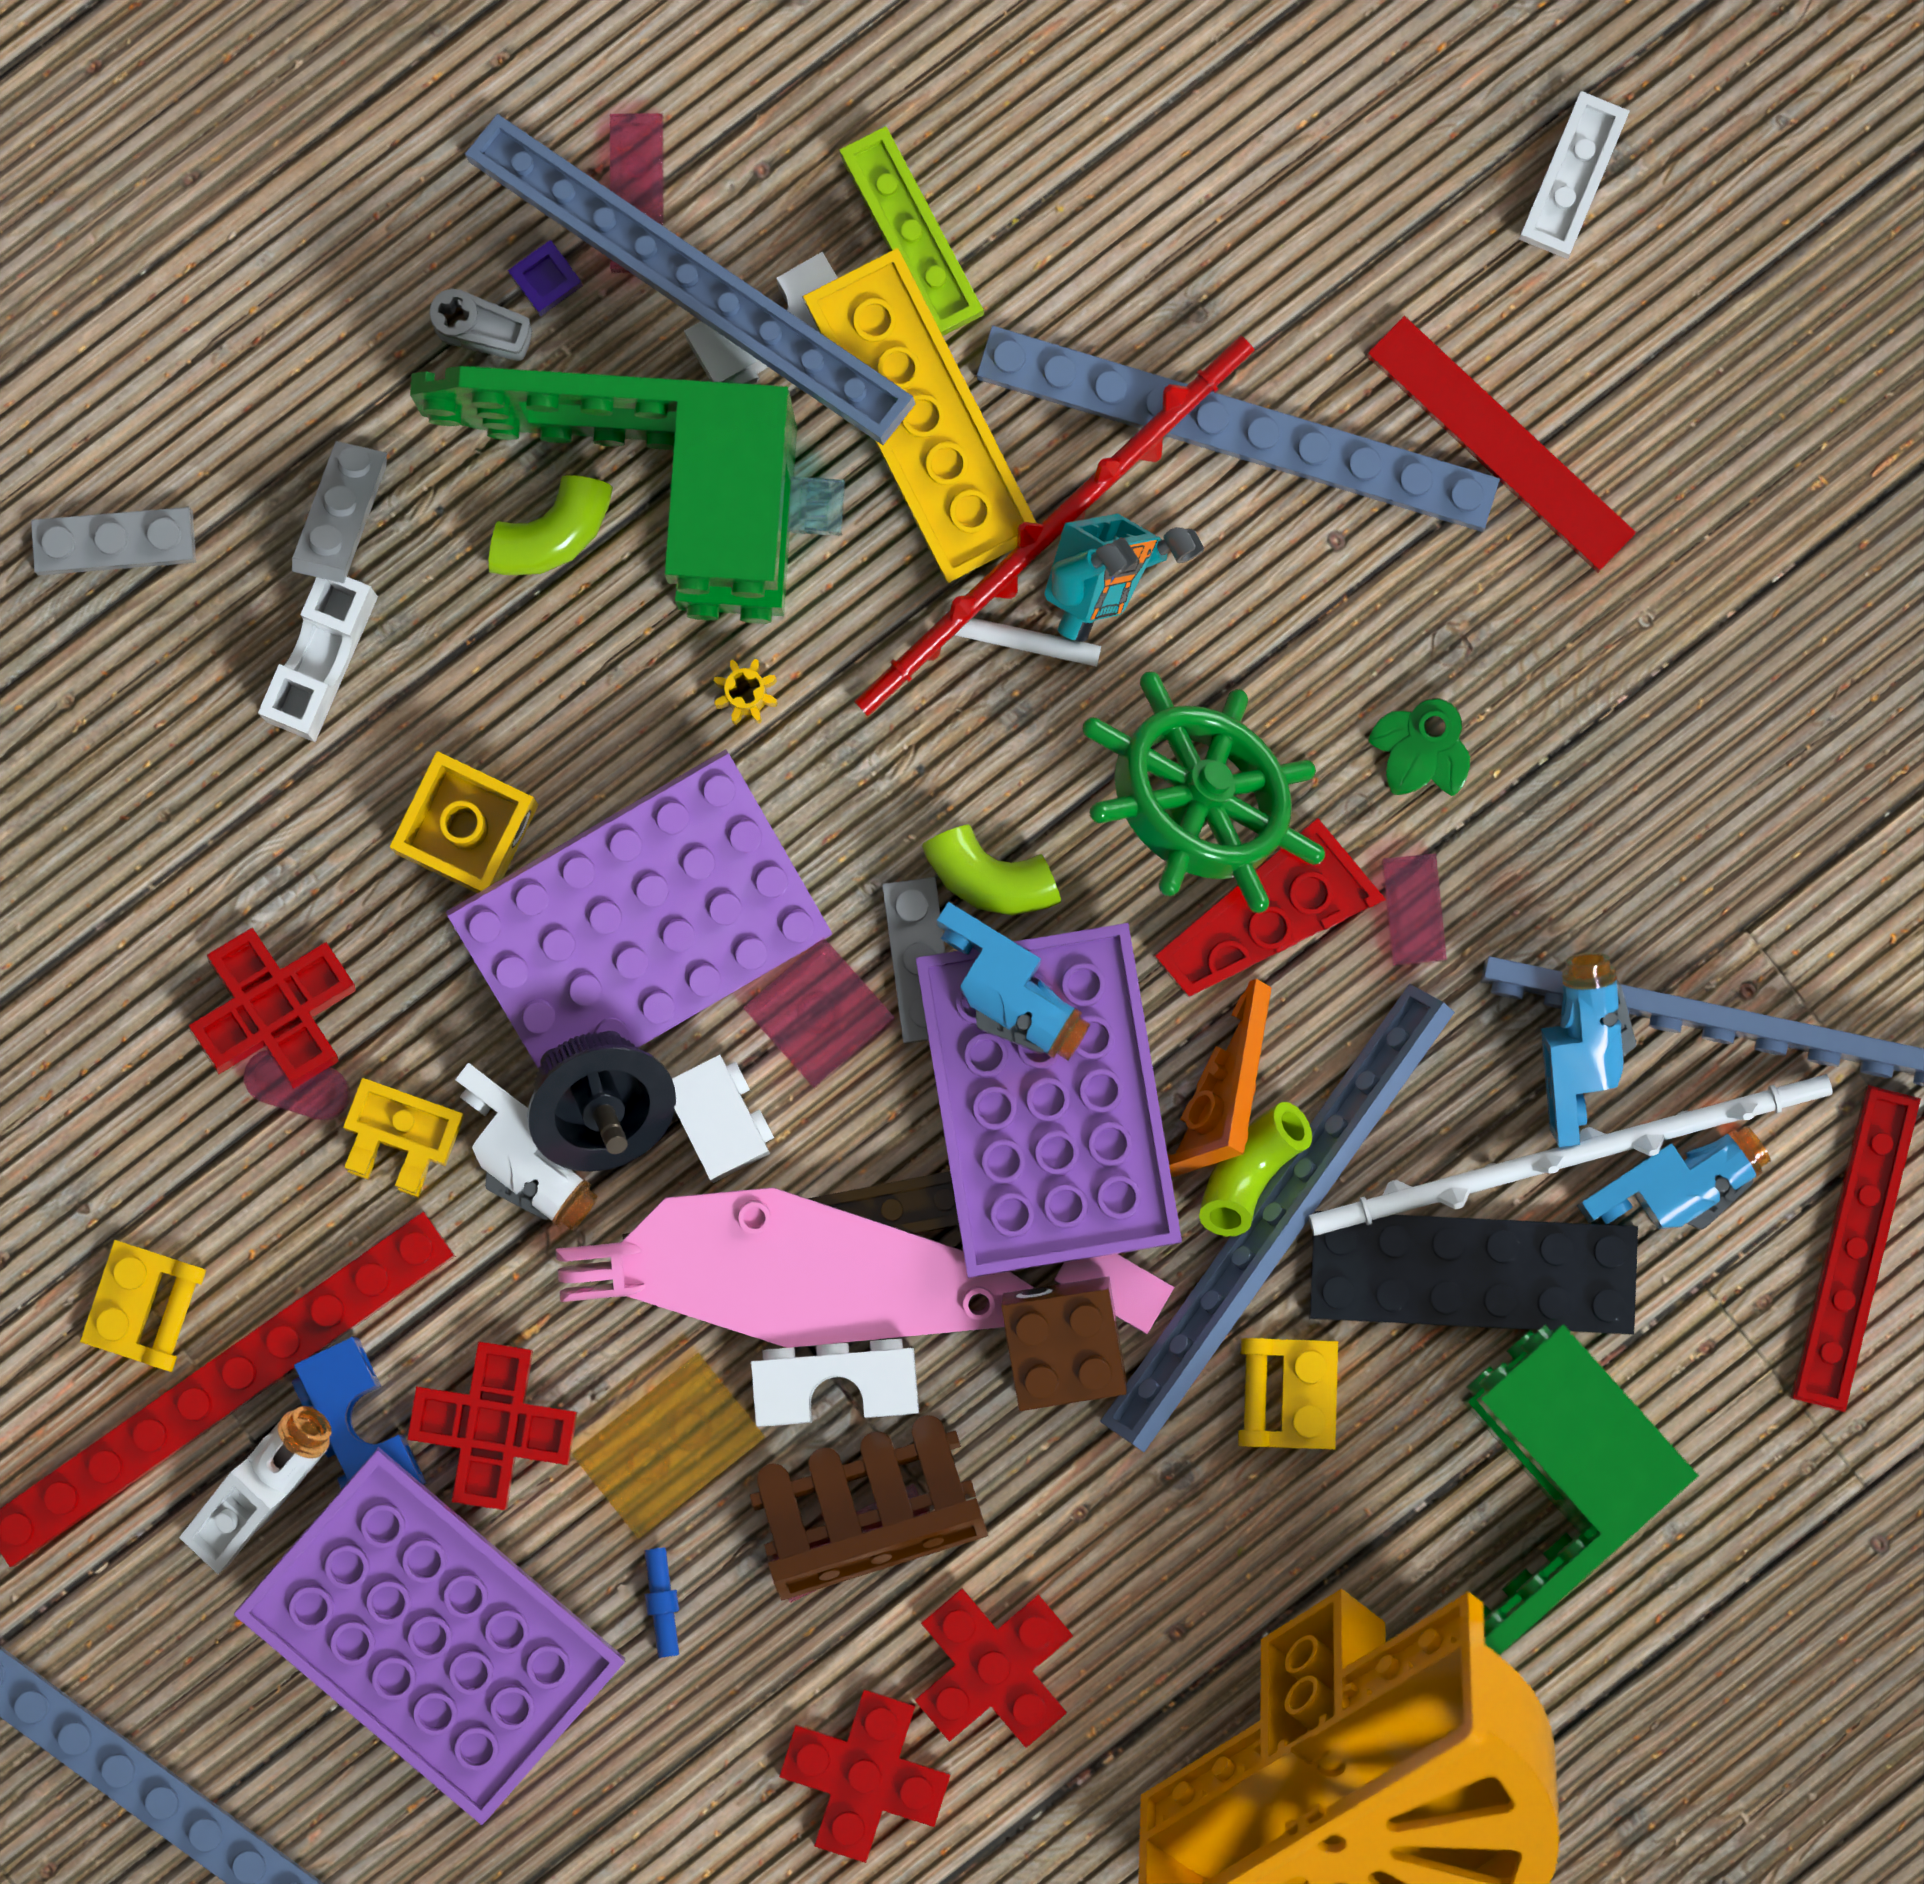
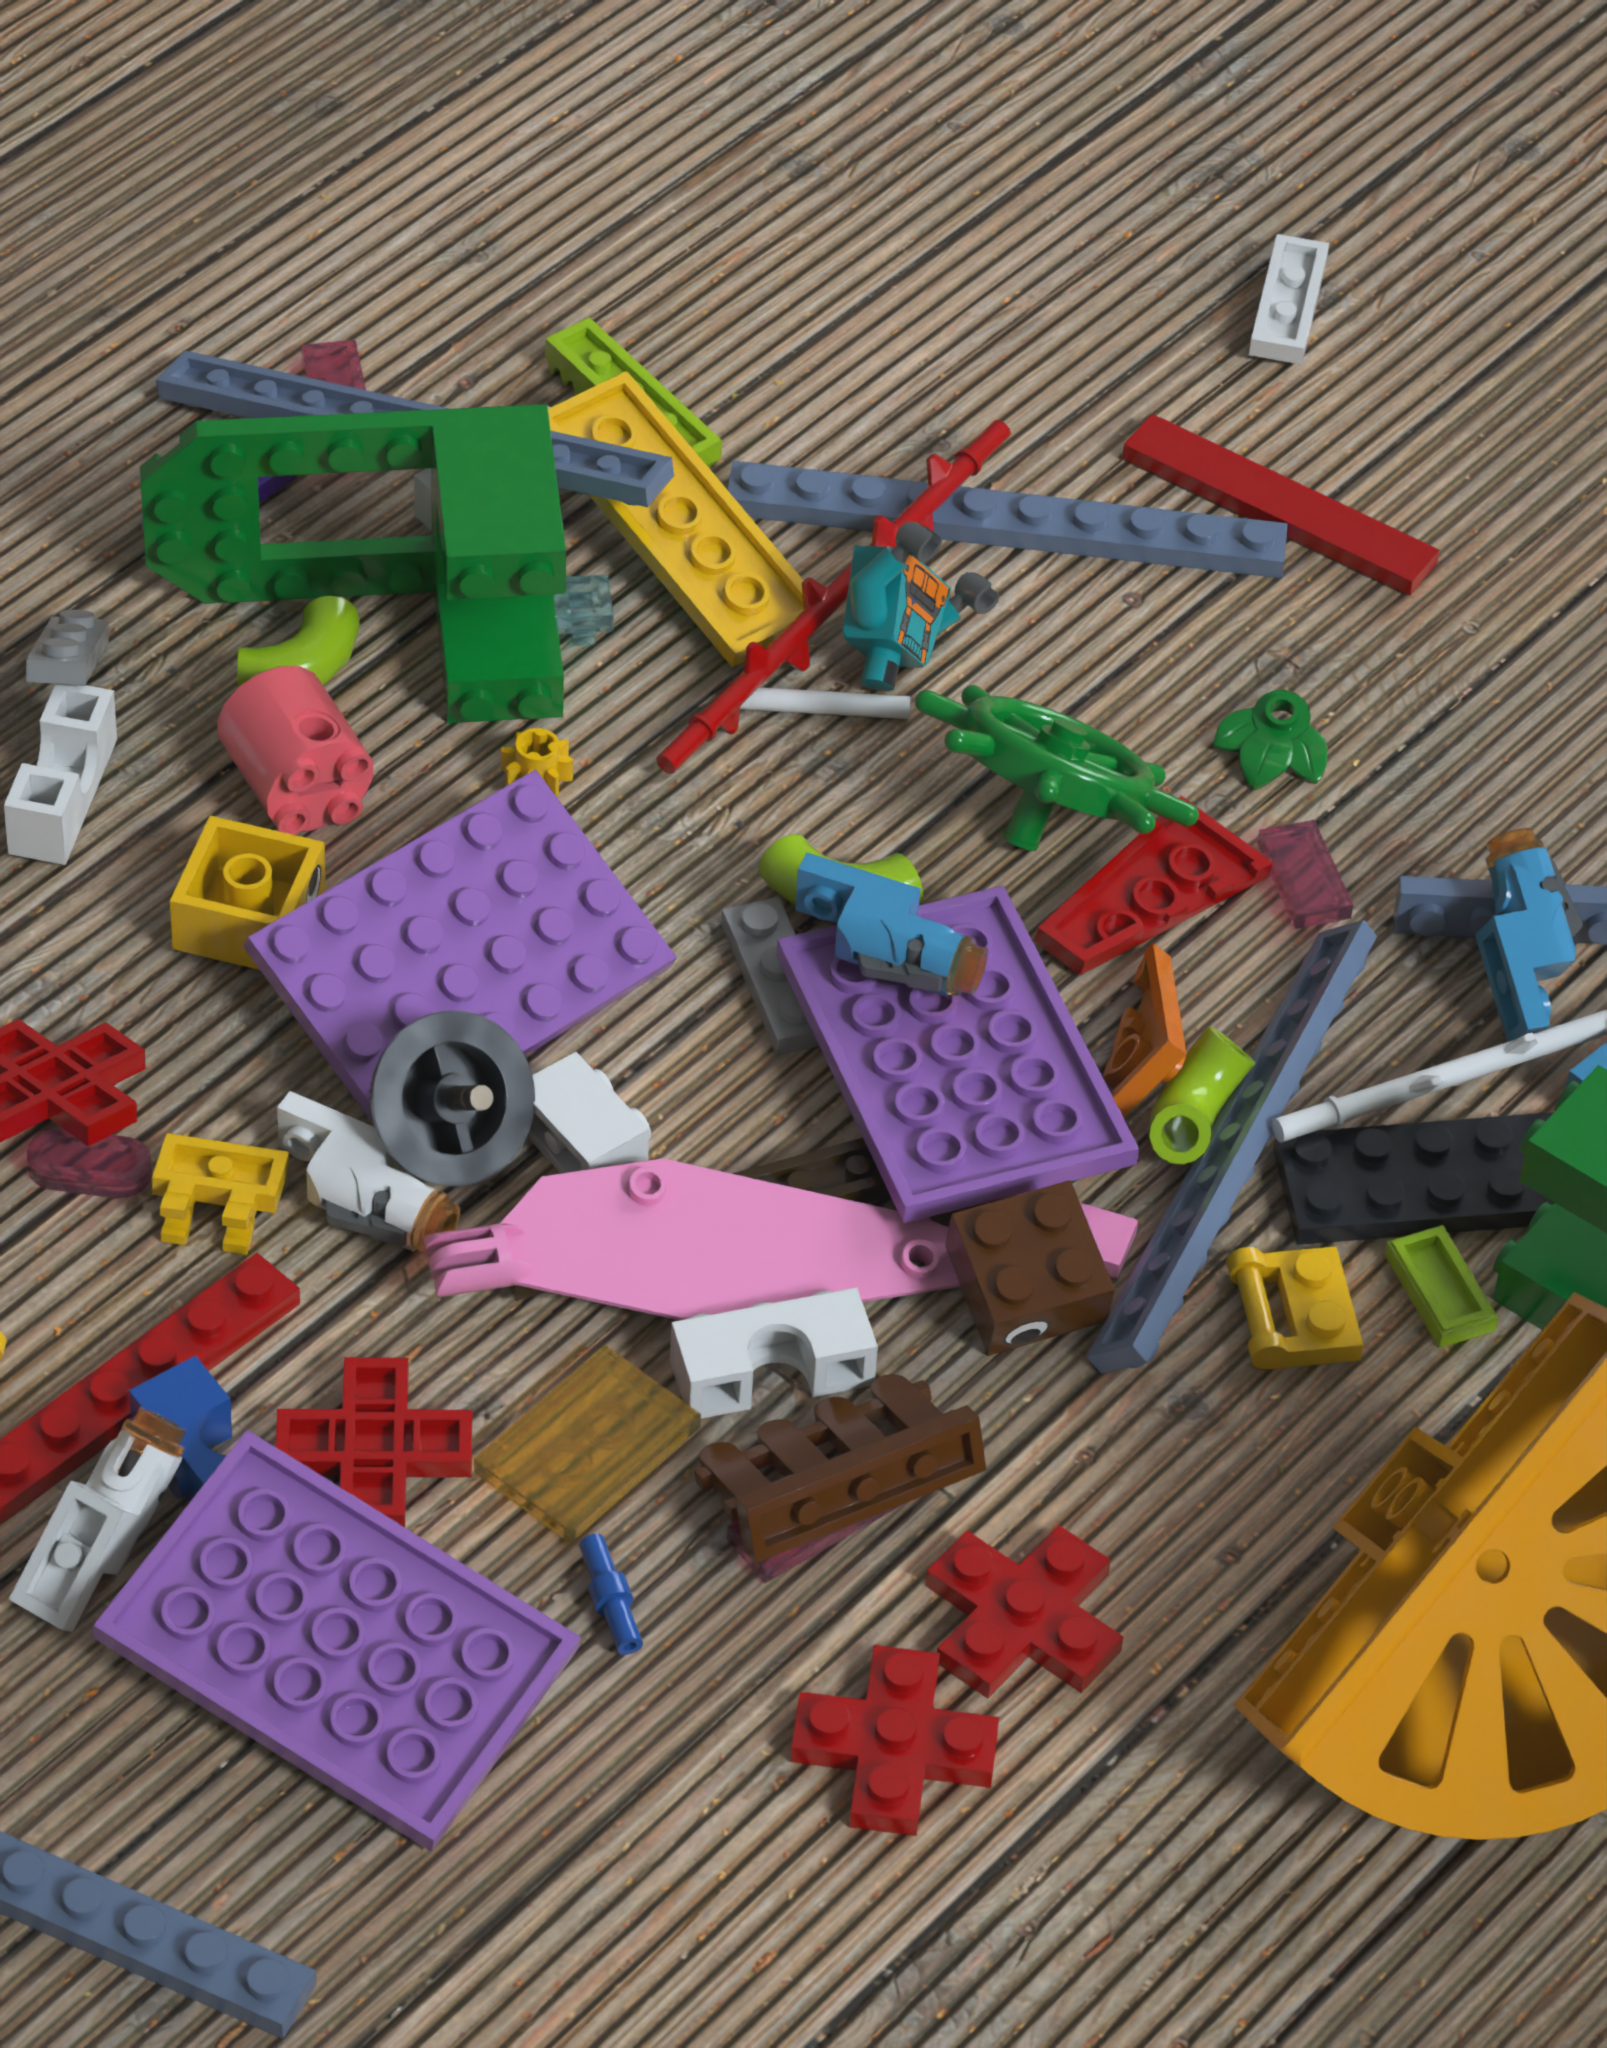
camera: 20 degrees left, 35 degrees down
(521, 644) = (295, 750): none -> coral cylinder
(819, 1013) = (676, 1031): clear pink tile -> none
(1420, 1388) = (1441, 1286): none -> lime tile

